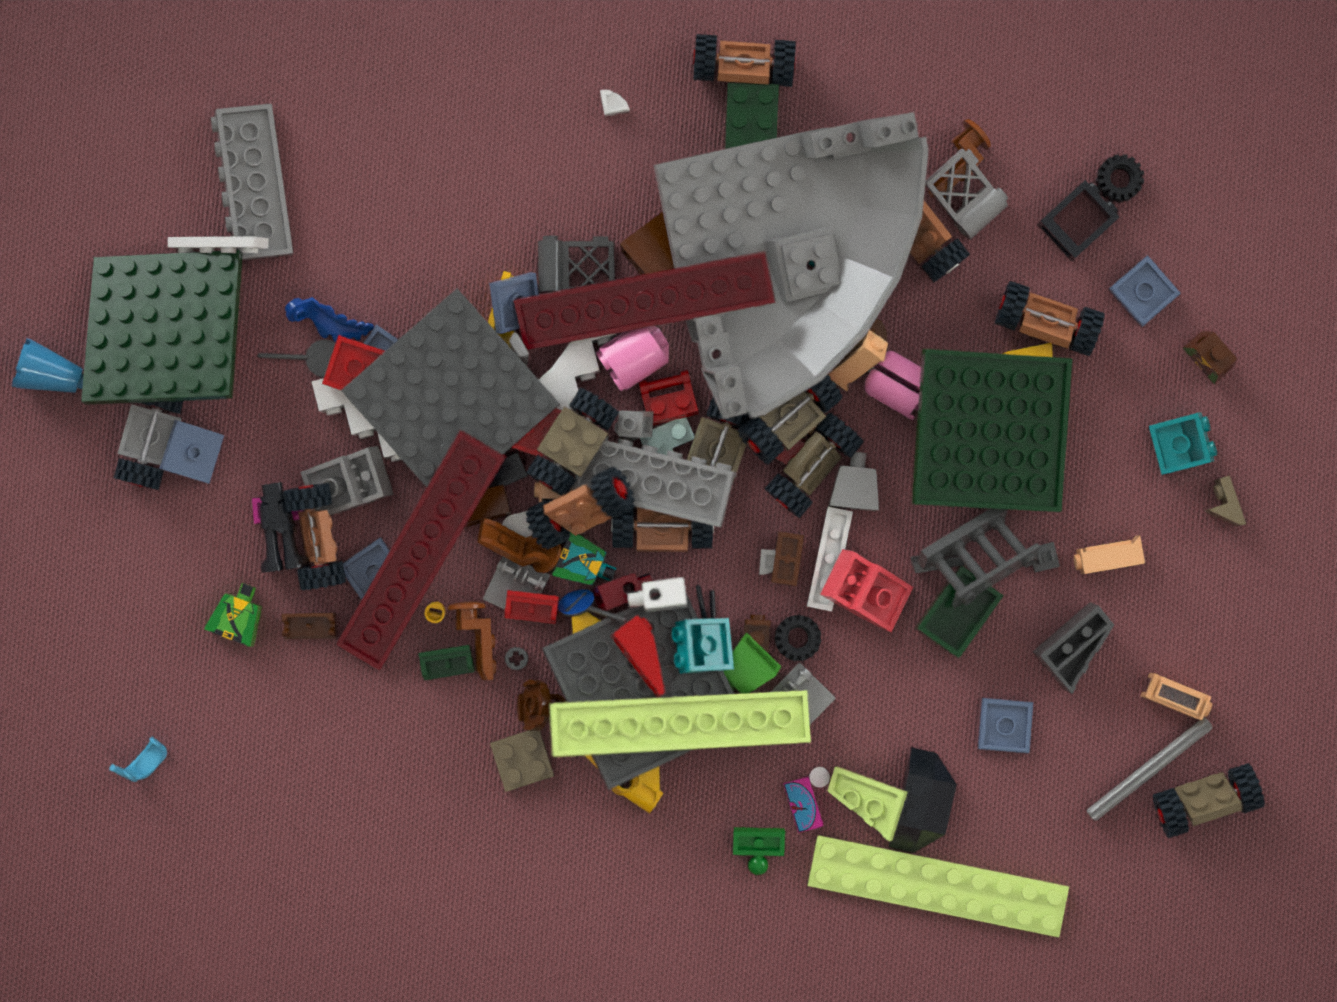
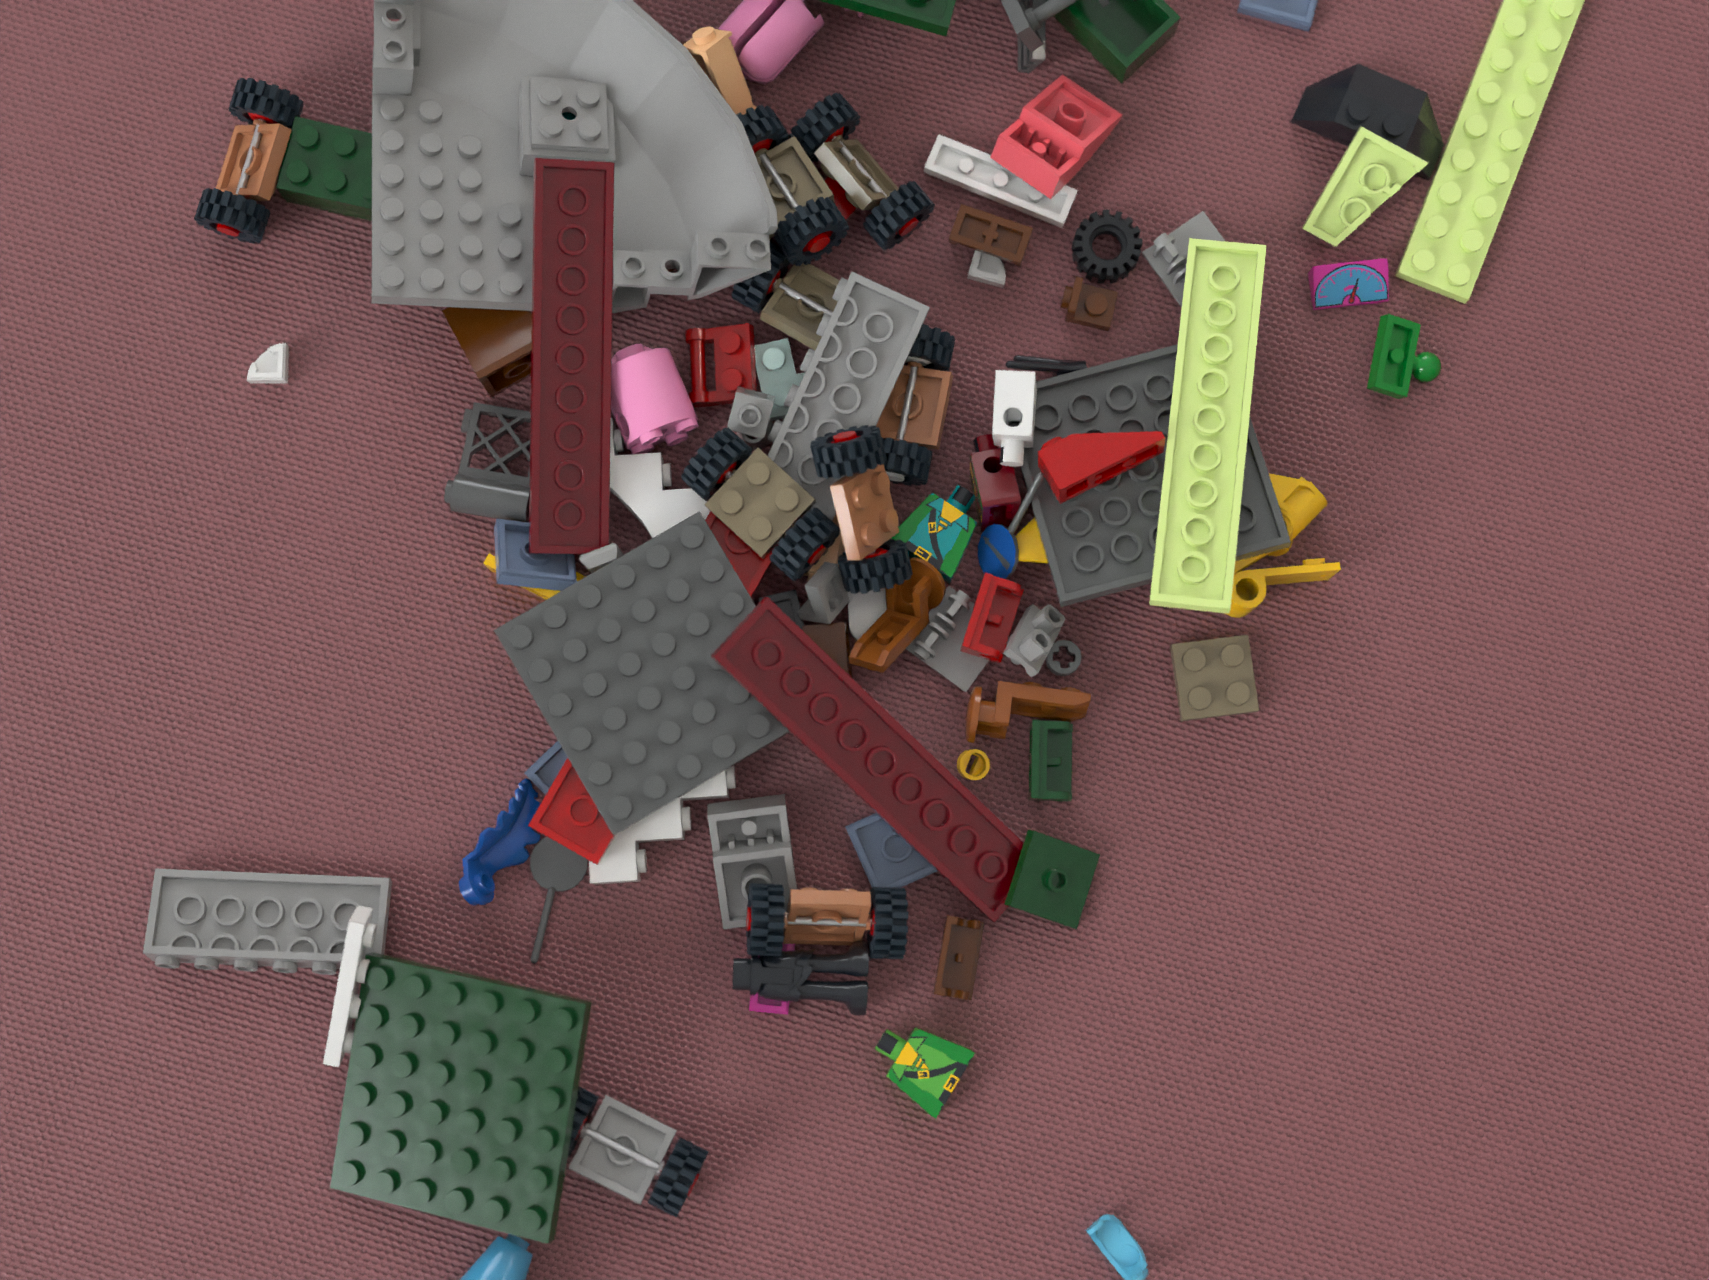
camera: 75 degrees left, 5 degrees down
(191, 451) = (659, 1089): sand blue plate -> none
(370, 676) = (1052, 879): none -> dark green plate
(523, 636) = (1034, 637): none -> light grey hips
(524, 495) = (825, 595): none -> light grey bracket
(534, 704) = (1140, 637): reddish brown tile -> none
(579, 769) = (1250, 585): none -> yellow door
(703, 645) = (1098, 371): teal plate -> none
(751, 666) = (1136, 318): bright green torso -> none
(819, 777) = (1311, 255): white sticker -> none
(855, 486) = (903, 124): light grey torso -> none

